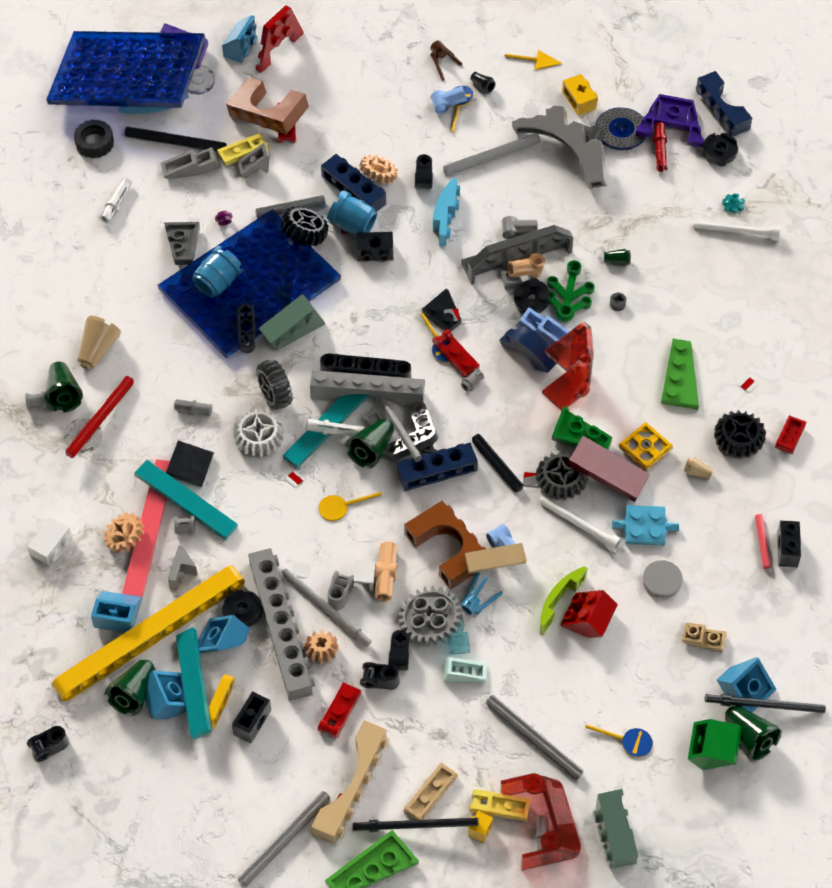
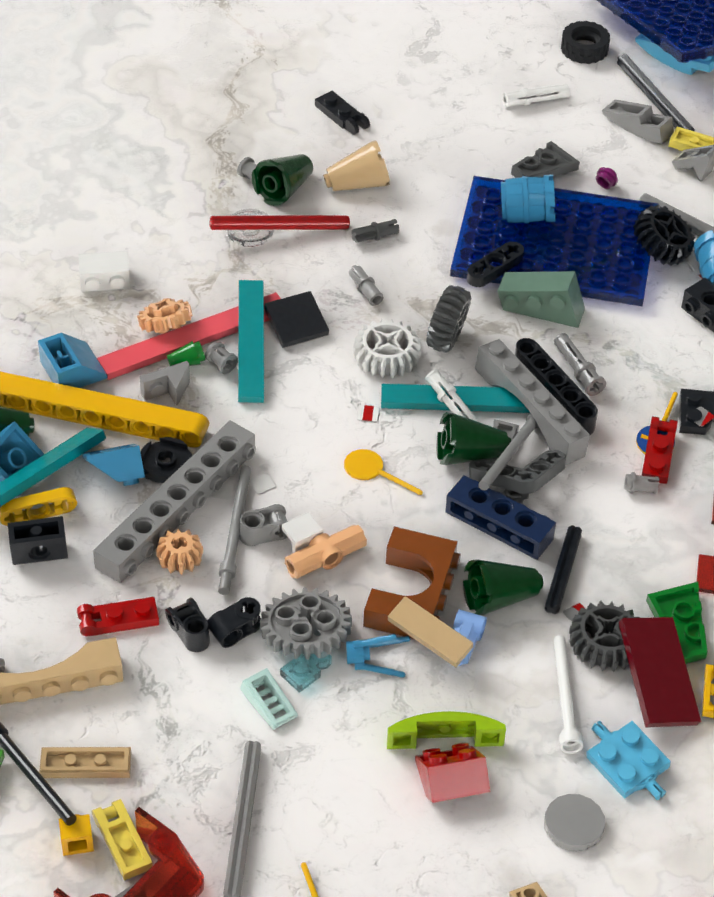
camera: 50 degrees right, 10 degrees down
(26, 314) = (342, 112): none -> black hinge
(152, 370) = (375, 231): none -> dark grey axle
(166, 541) = (190, 352): none -> green cone
(366, 345) = (583, 370): none -> light grey pin
(486, 505) = (498, 585): none -> dark green cone

